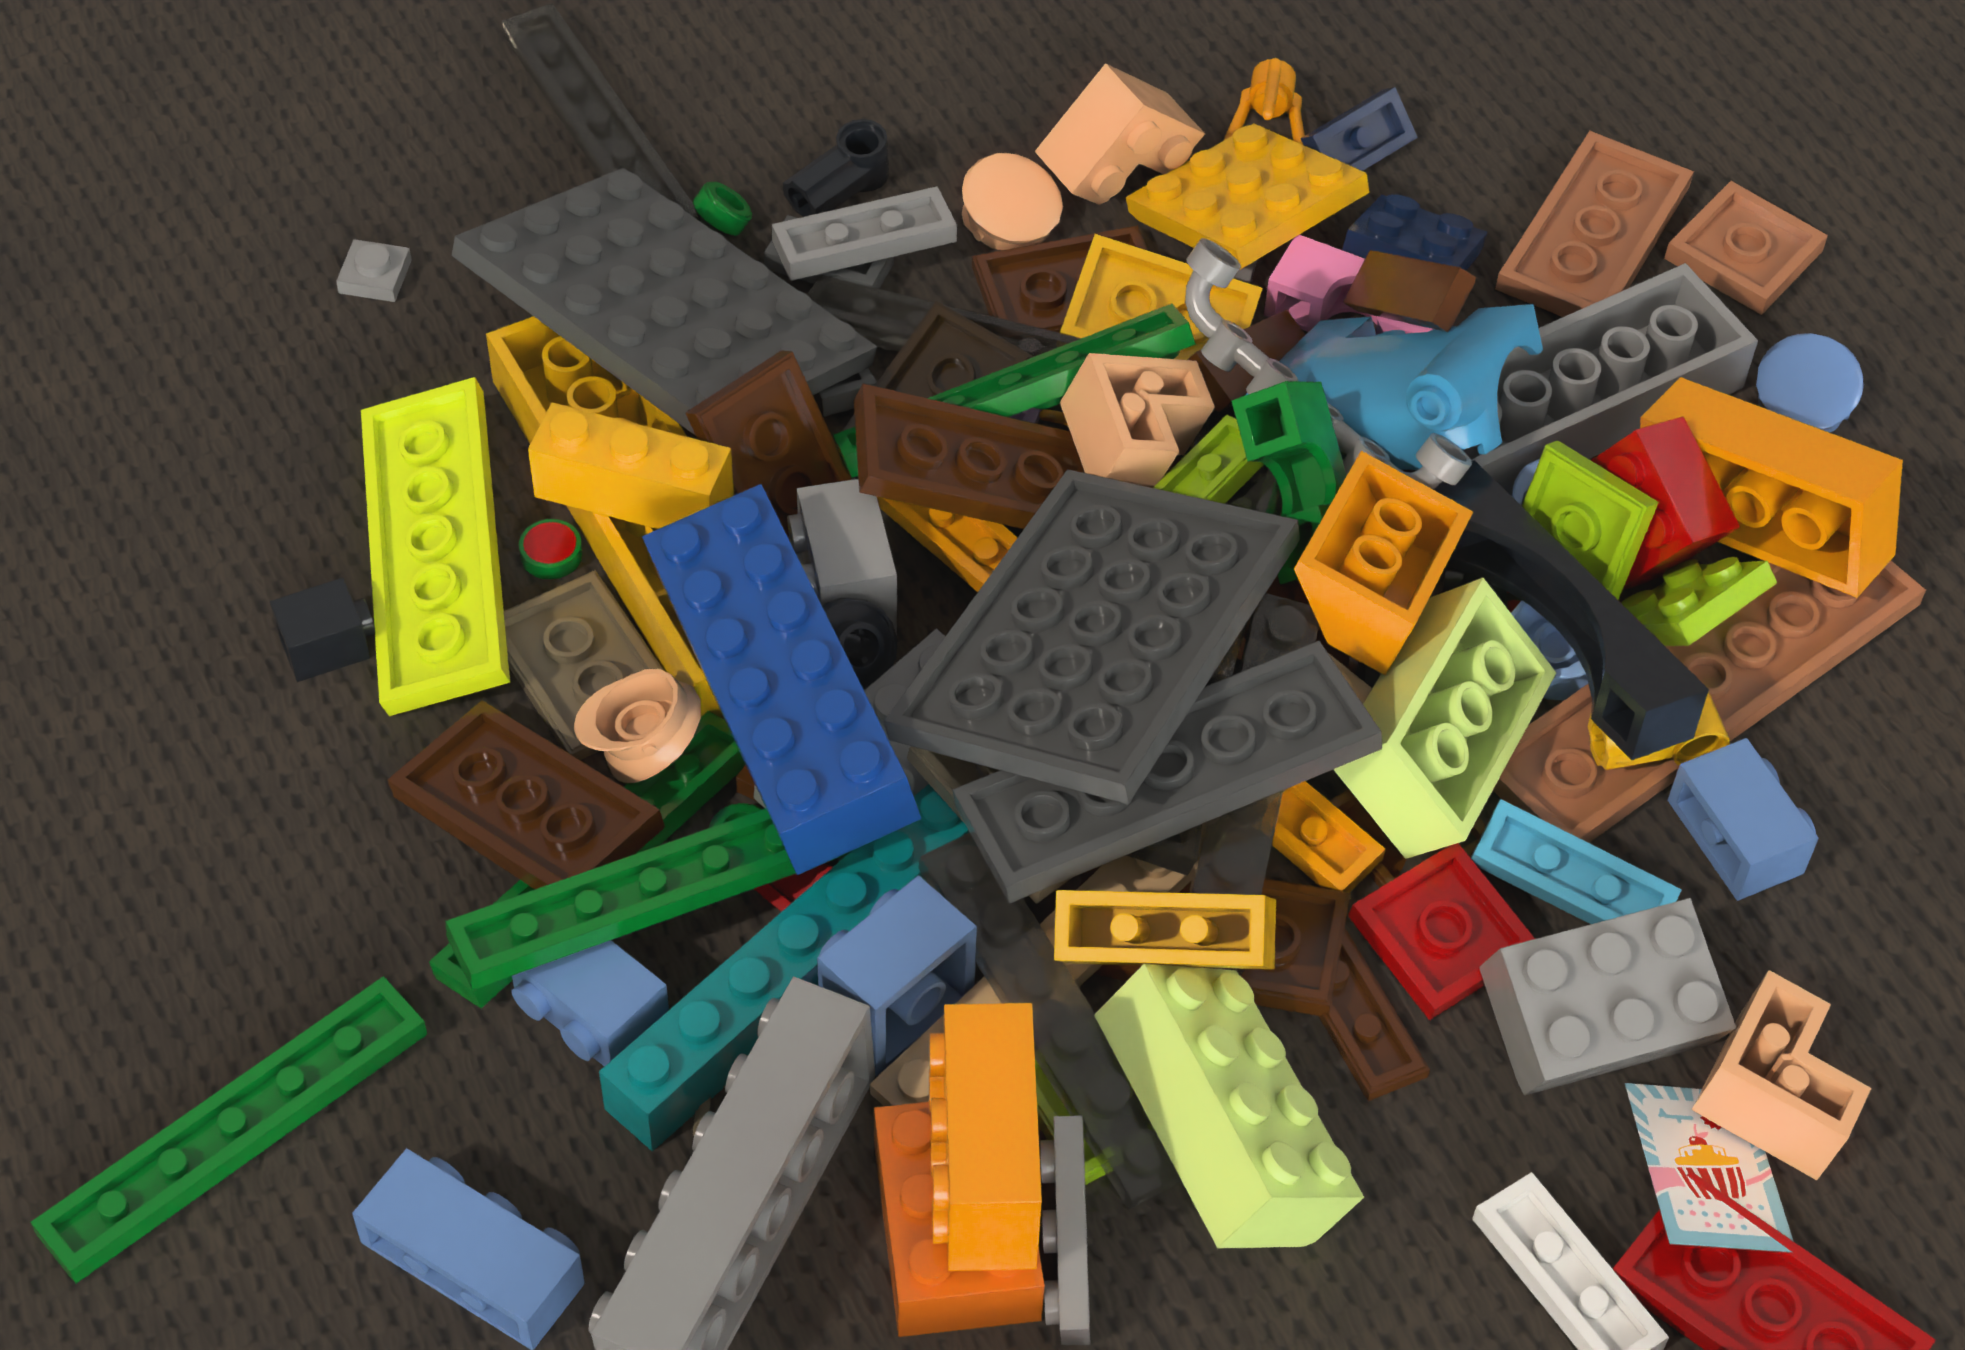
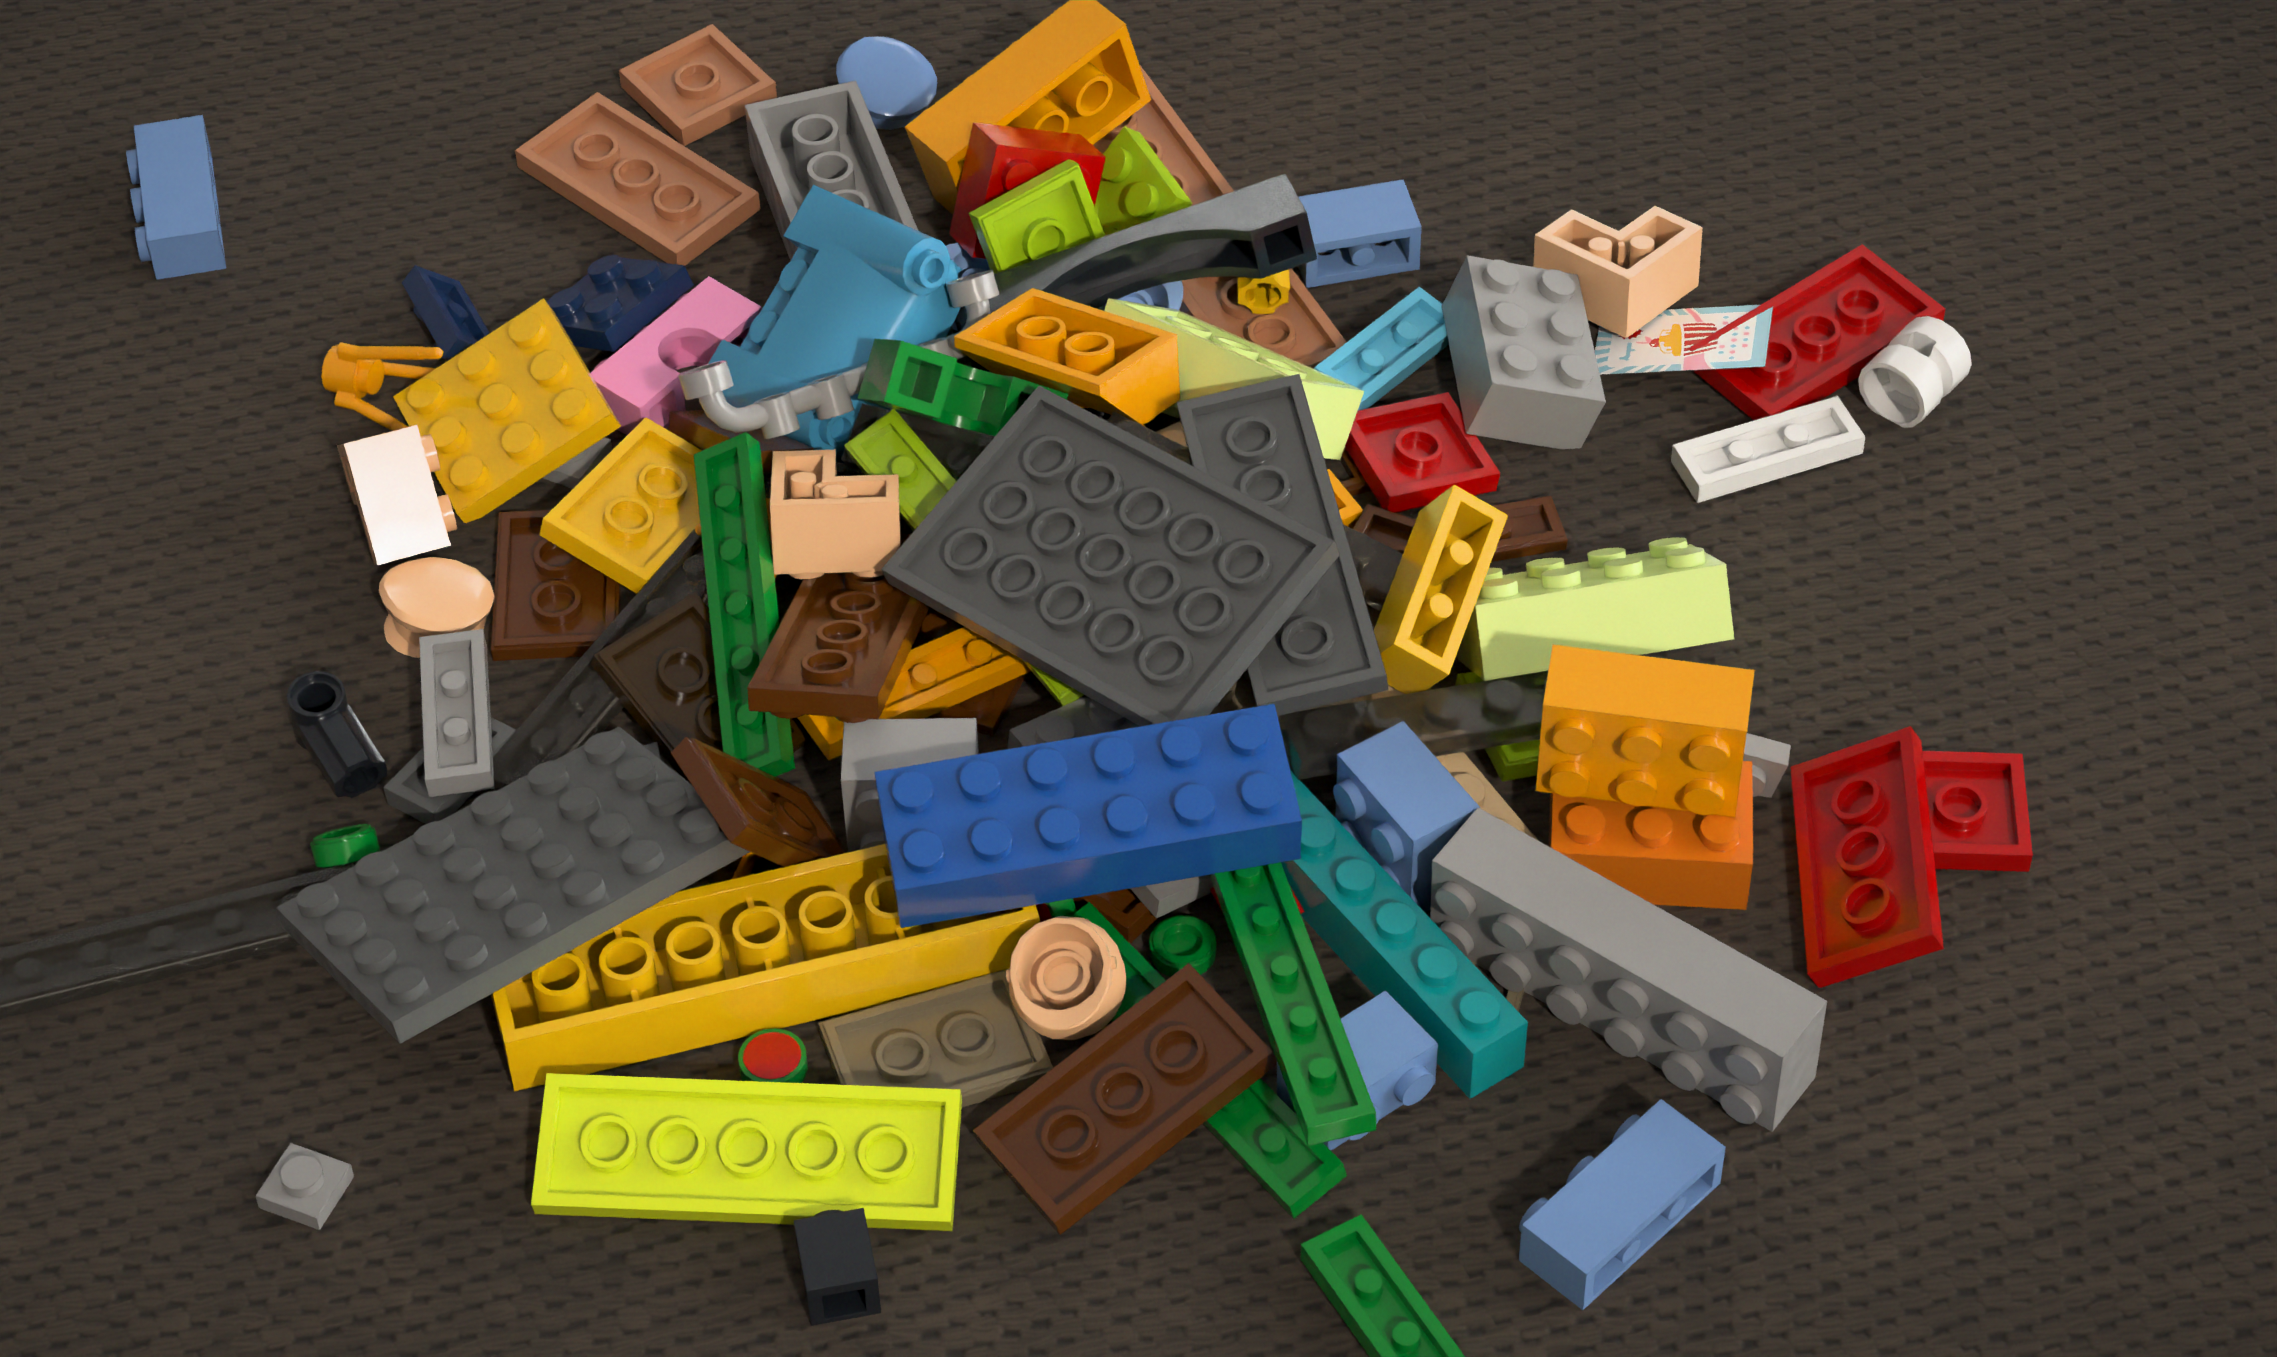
camera: 75 degrees left, 5 degrees down
(626, 468) = (777, 912): yellow brick -> none
(1410, 290) = (735, 283): reddish brown tile -> none

